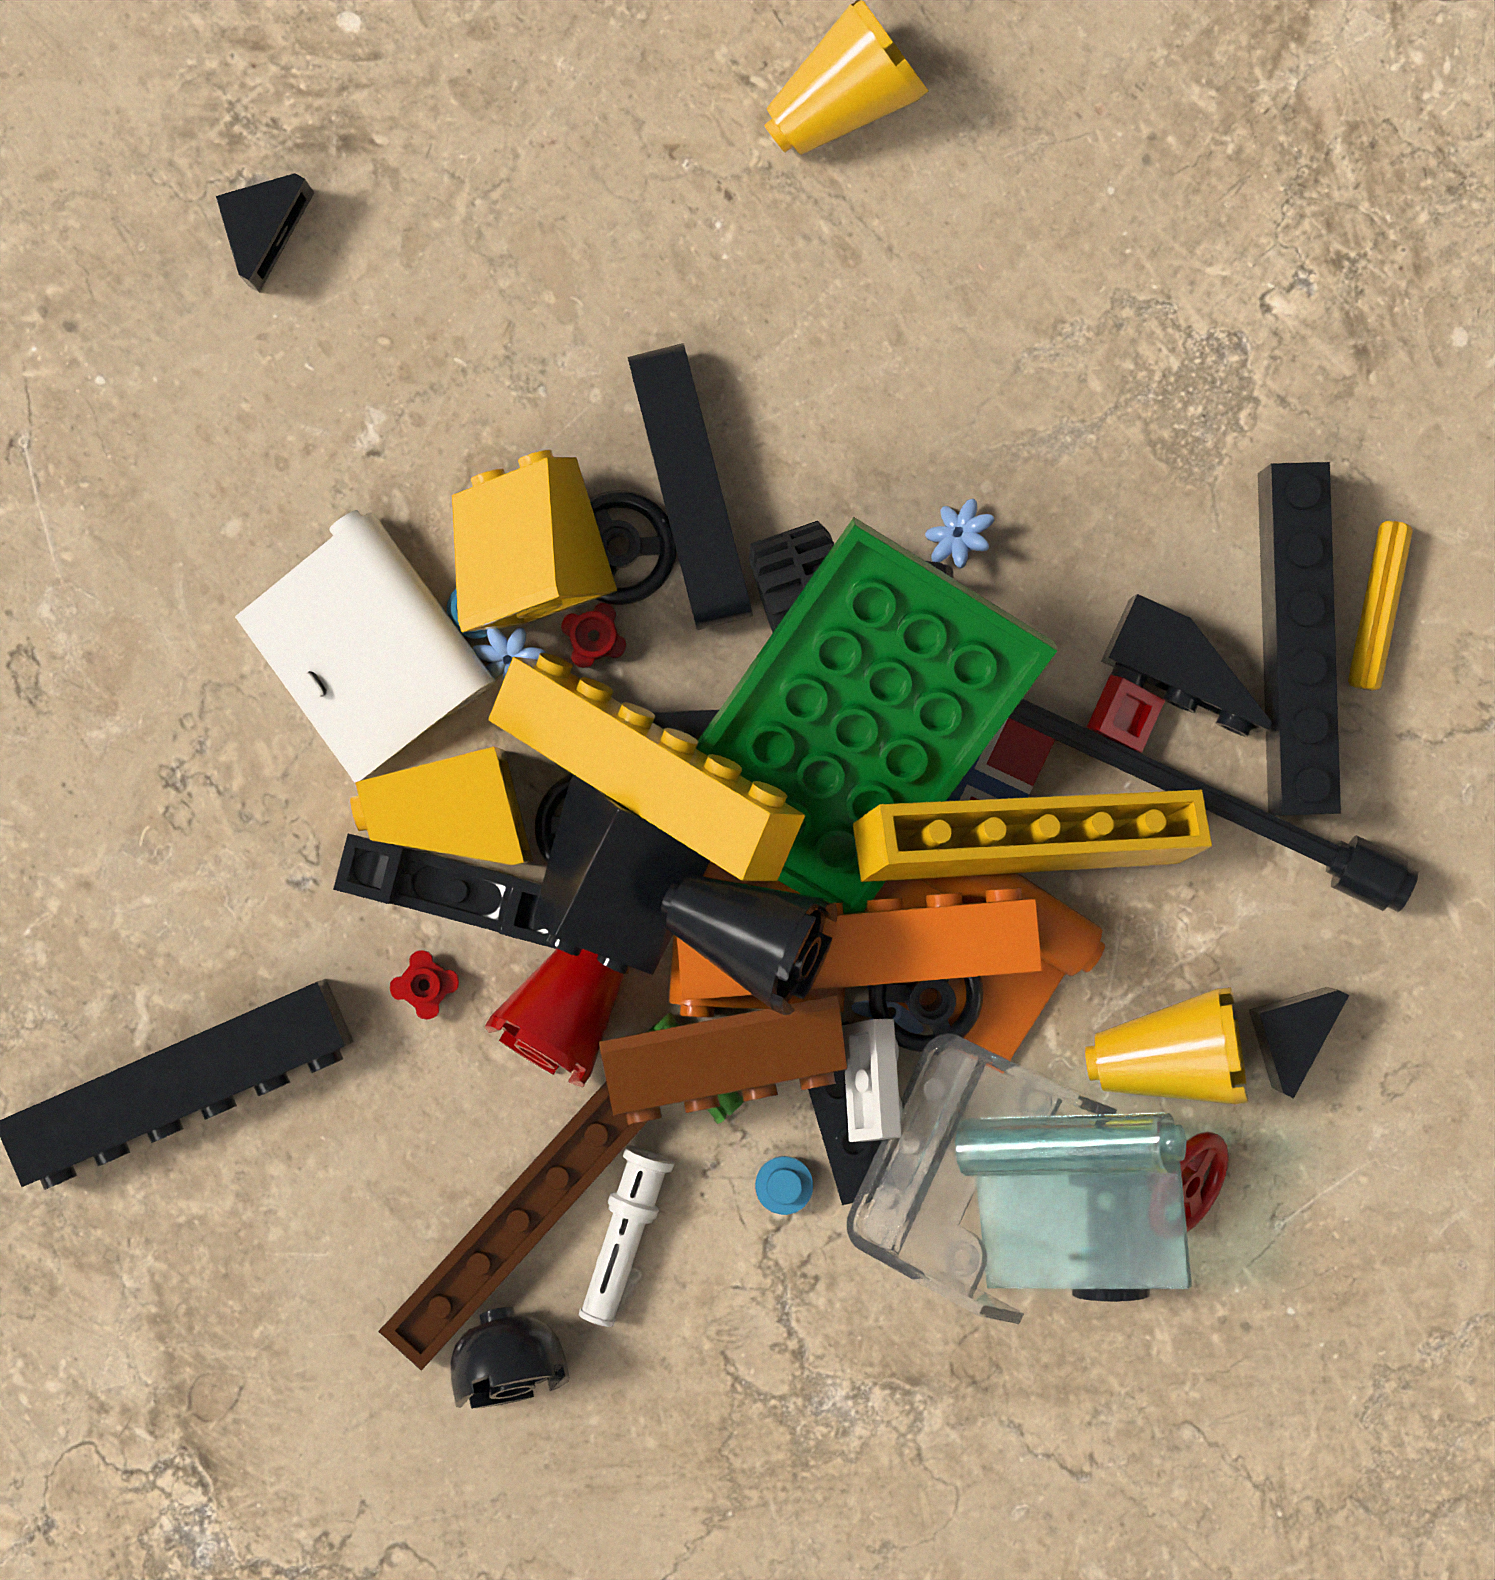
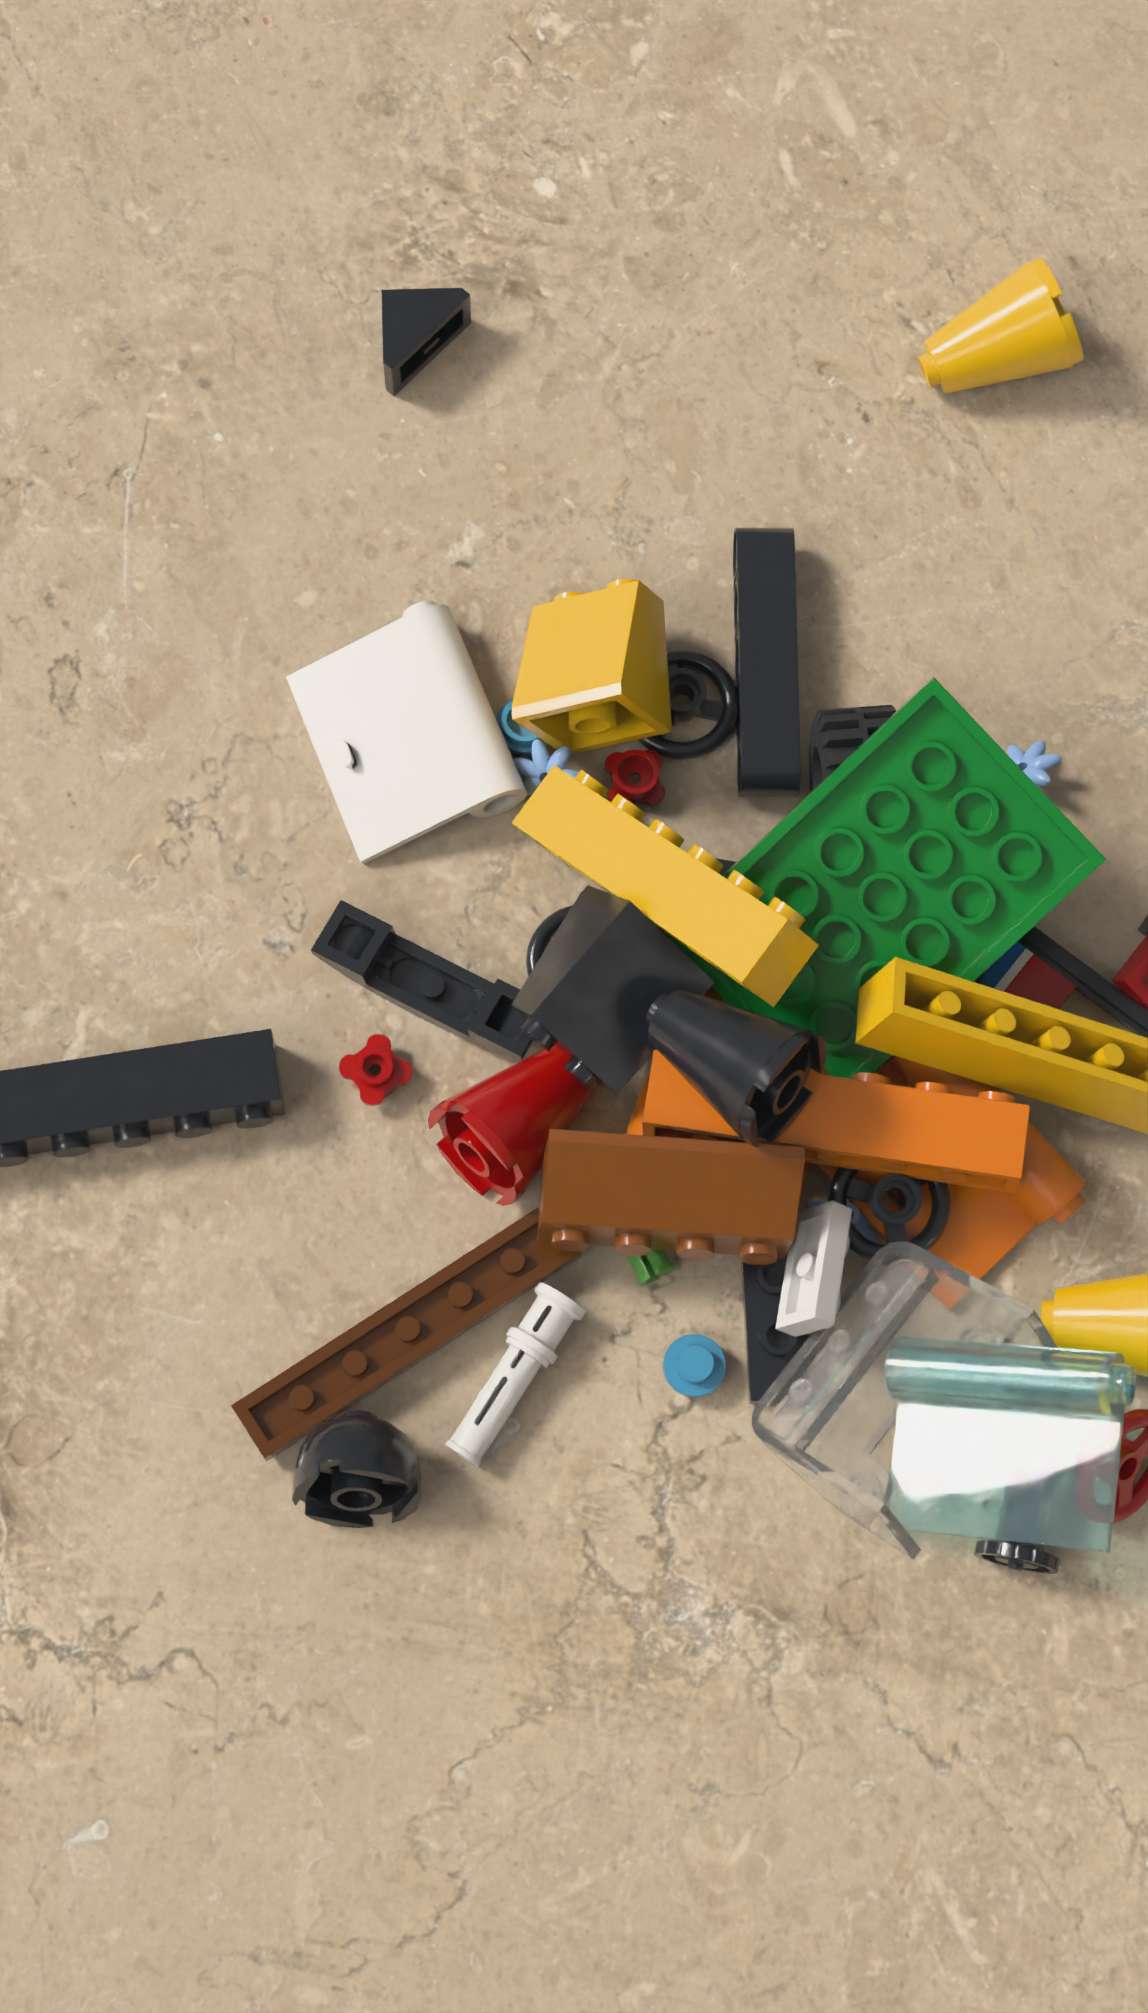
camera: 15 degrees right, 15 degrees down
(447, 807) = (447, 892): yellow slope -> none

